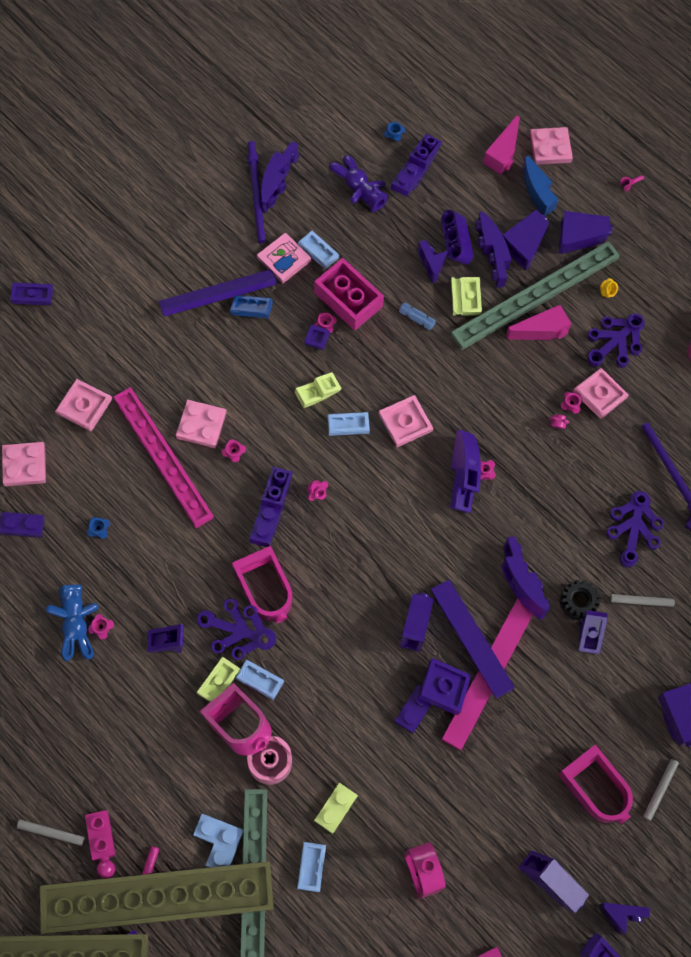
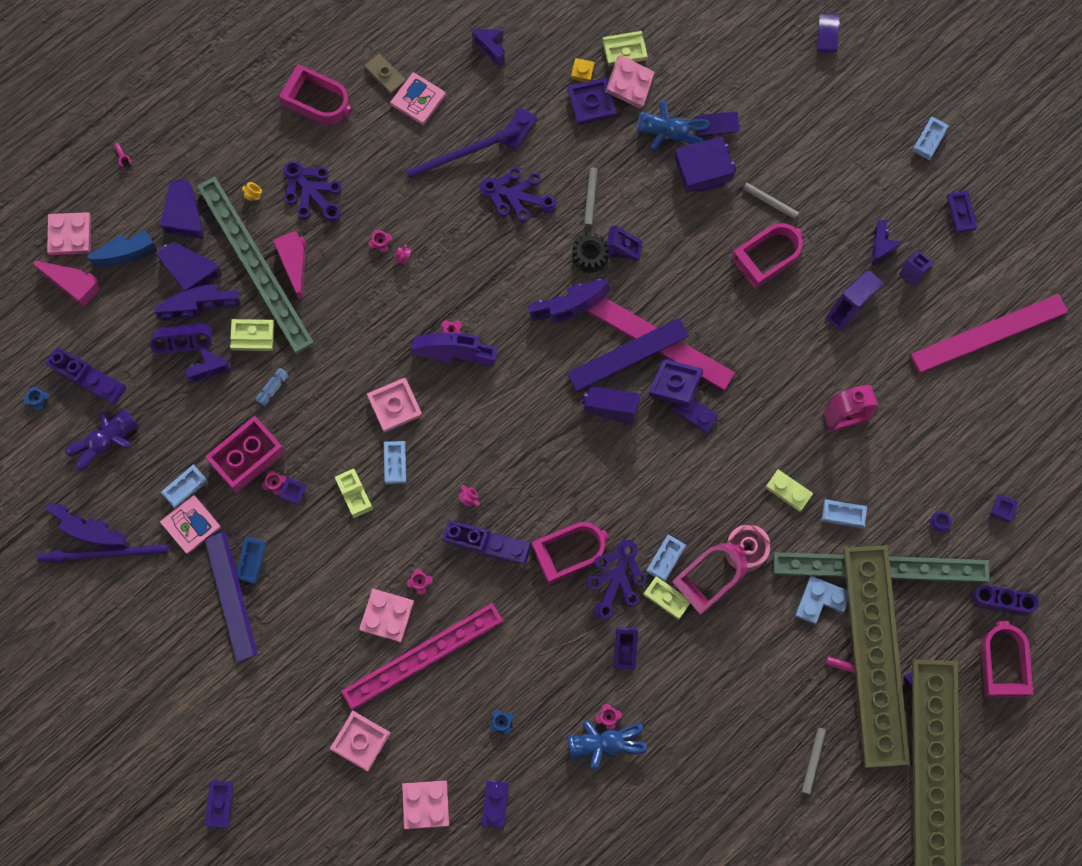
camera: 85 degrees left, 5 degrees up
(101, 842) = (823, 711): dark pink plate -> none
(601, 393) = (371, 211): bright pink tile -> none

